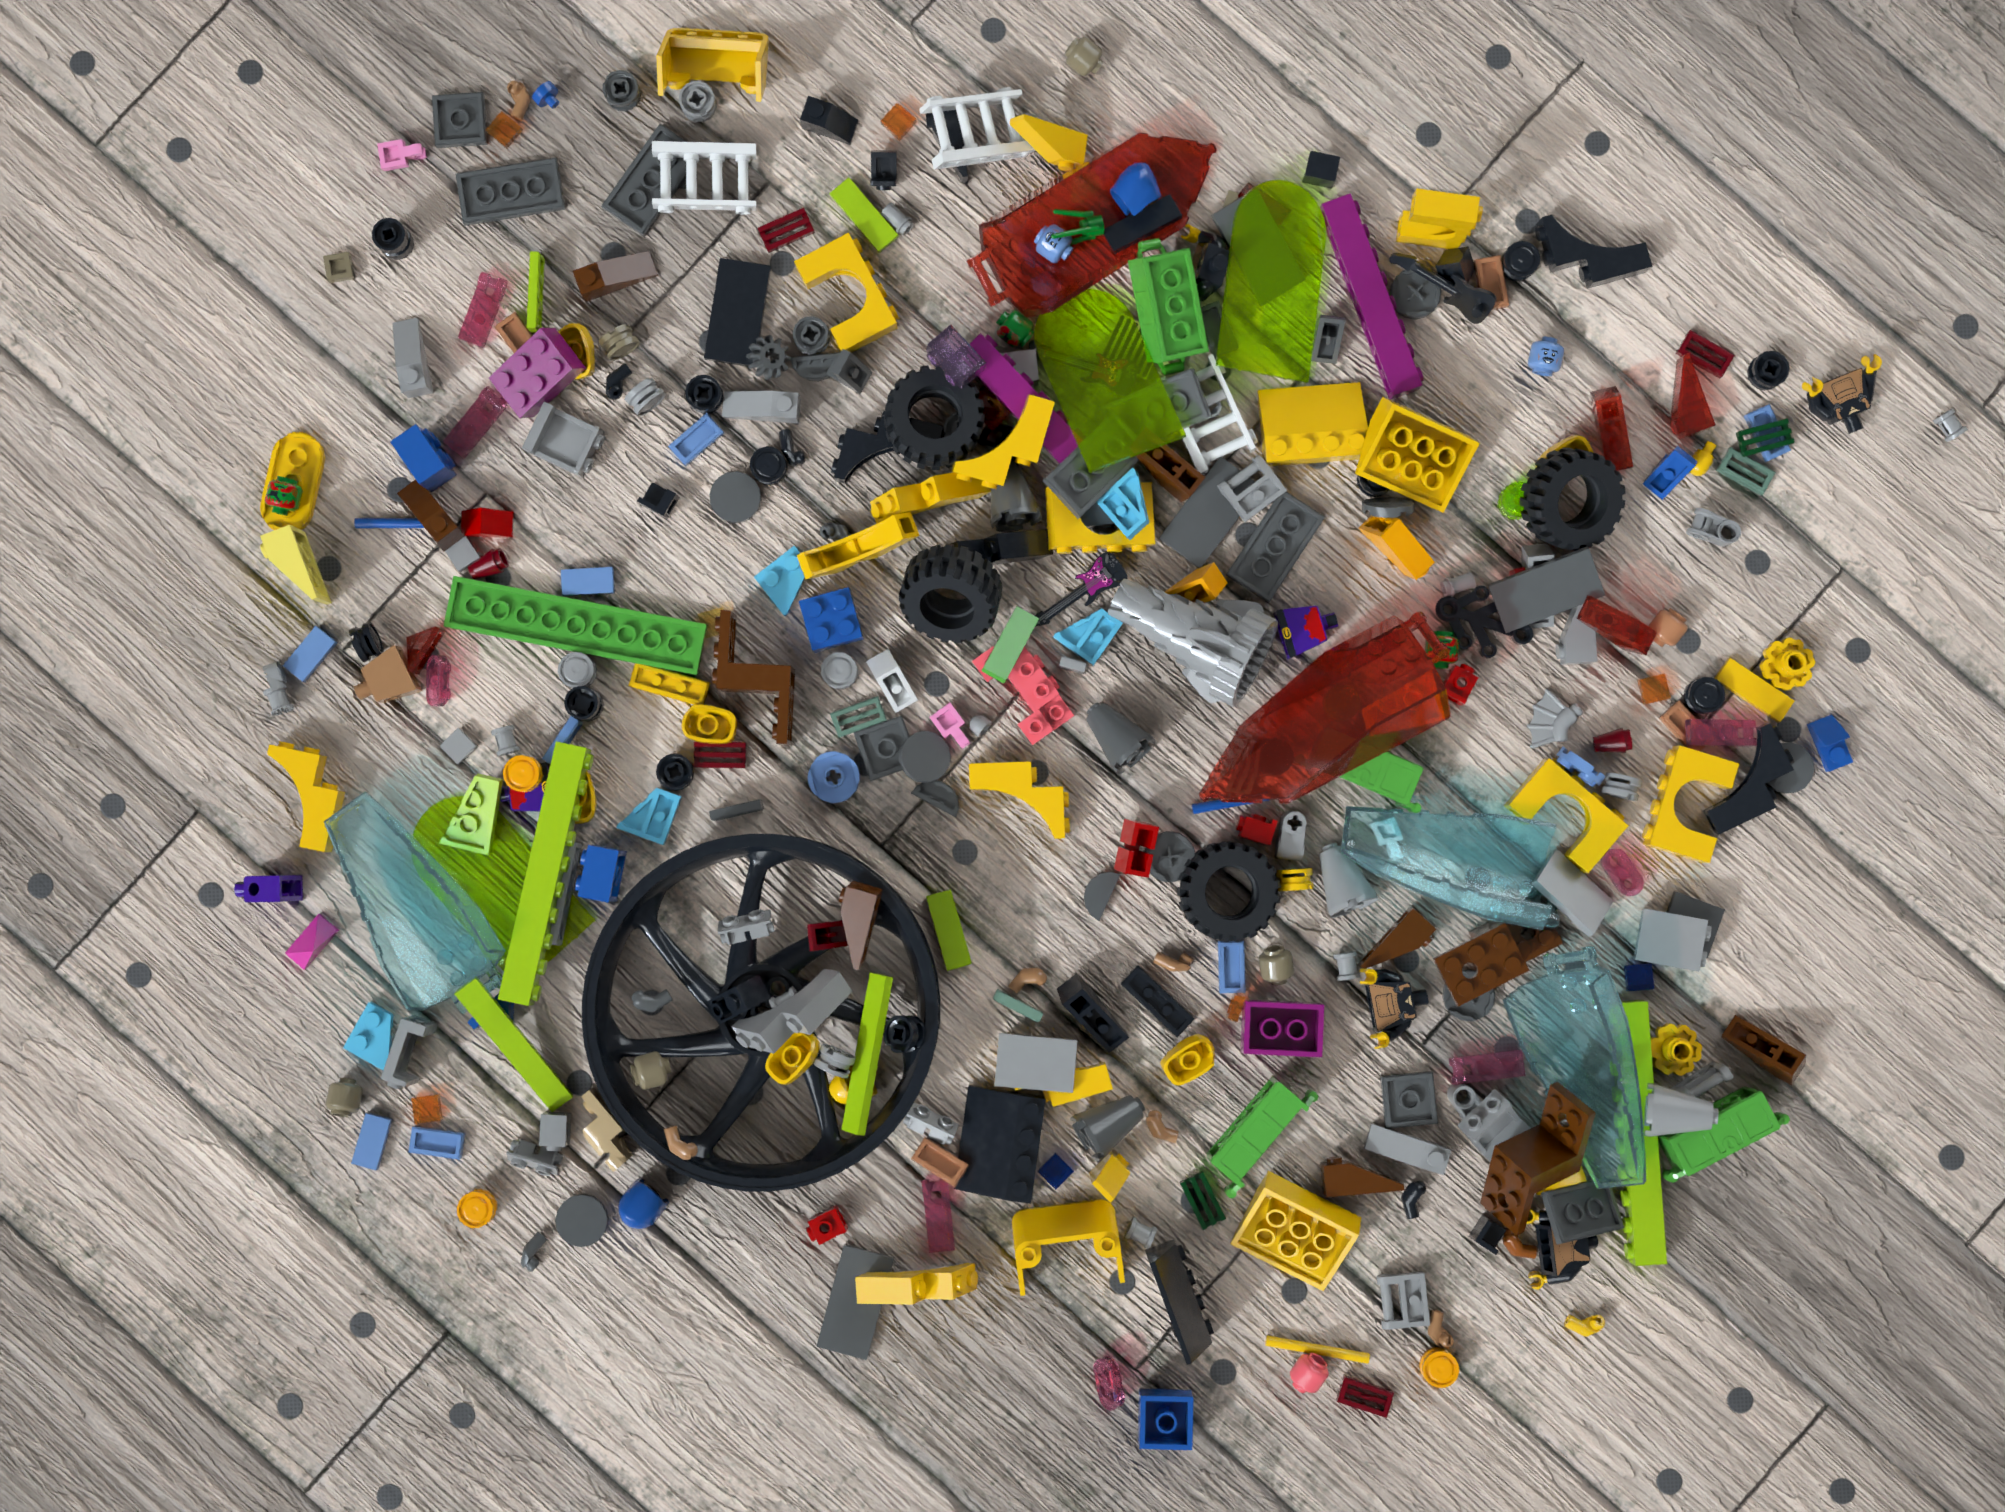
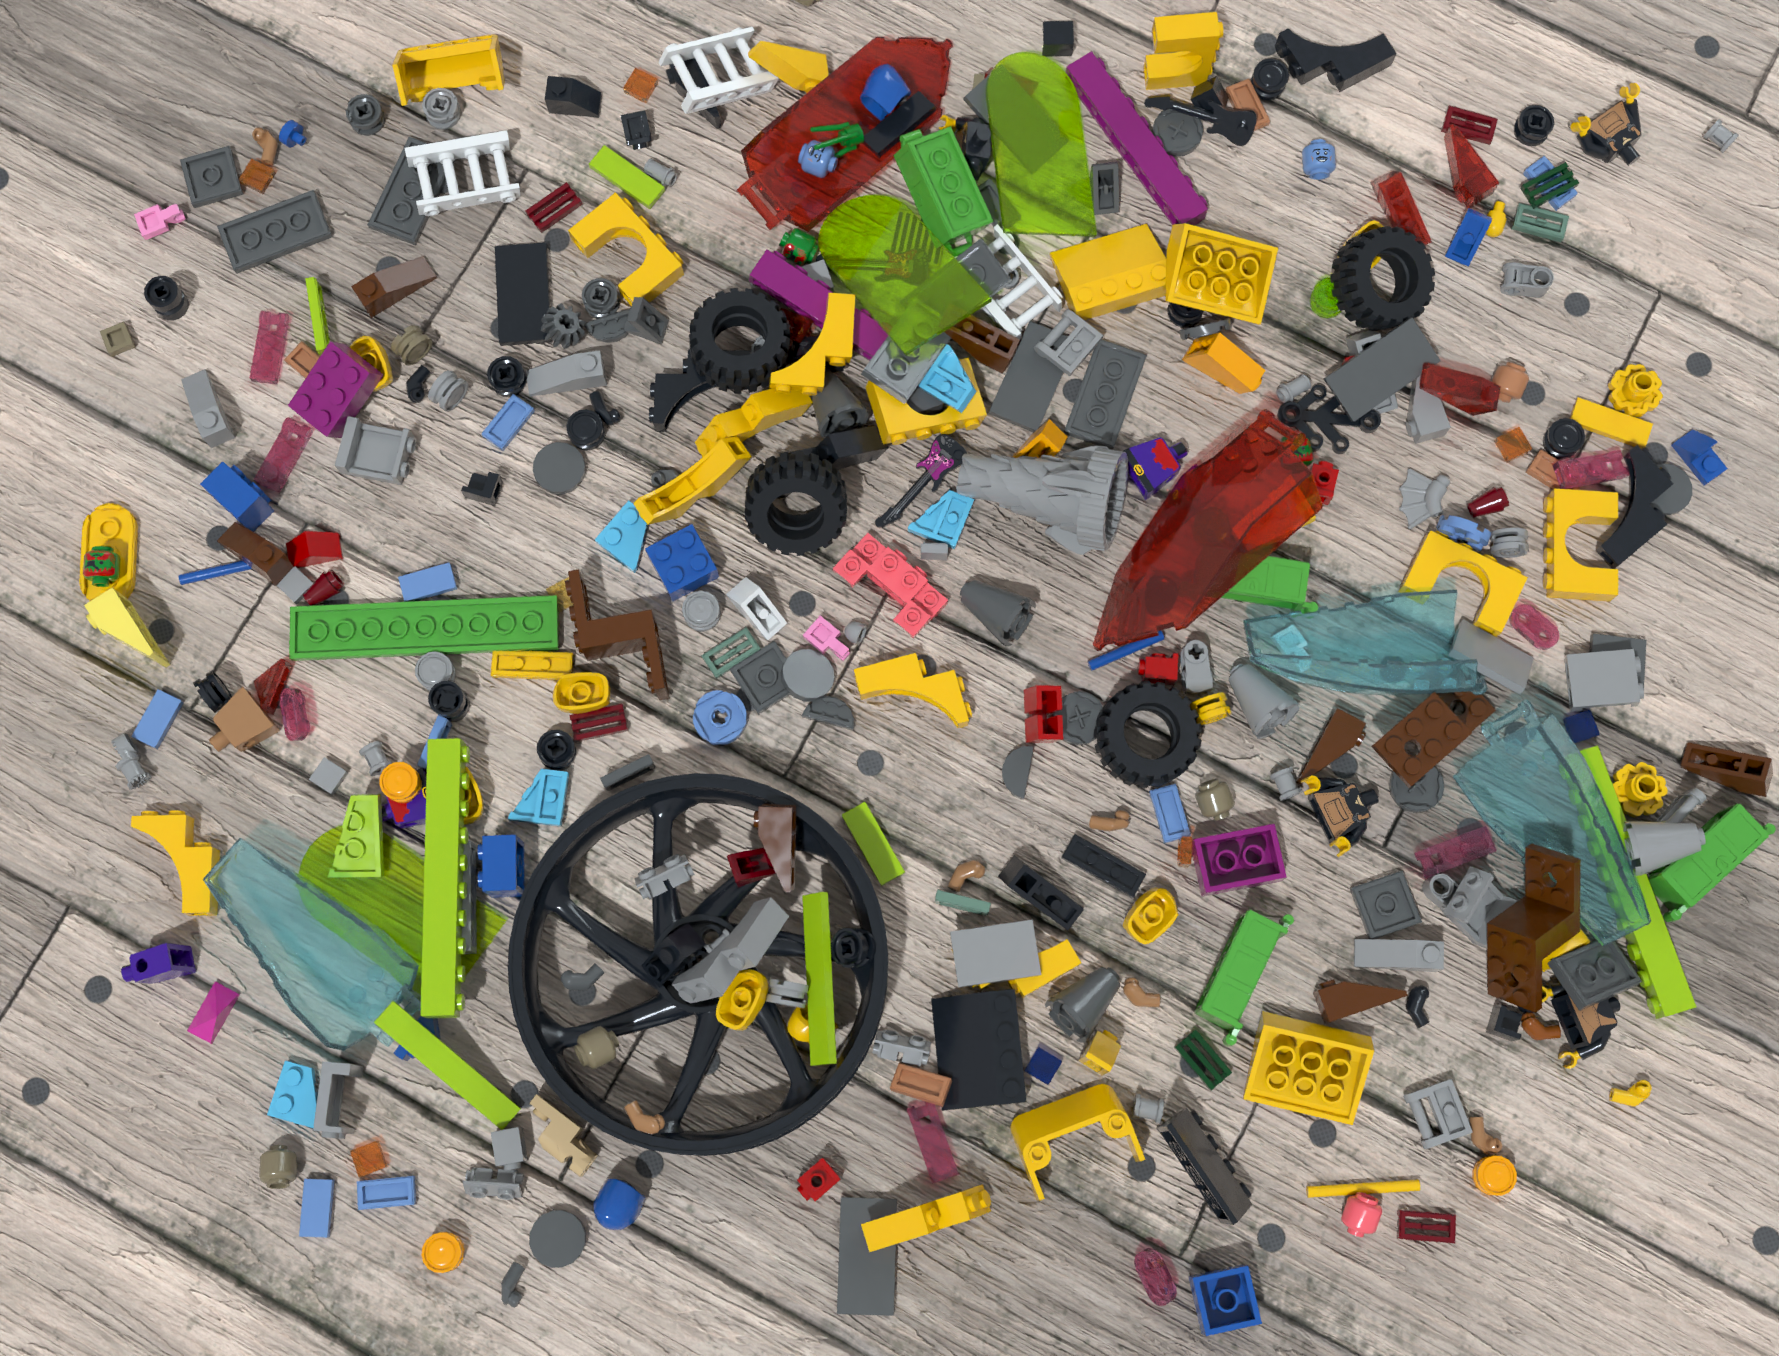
camera: 15 degrees left, 10 degrees down
(955, 357) = (747, 274): clear purple brick -> none
(1010, 644) = (867, 543): bright green tile -> none

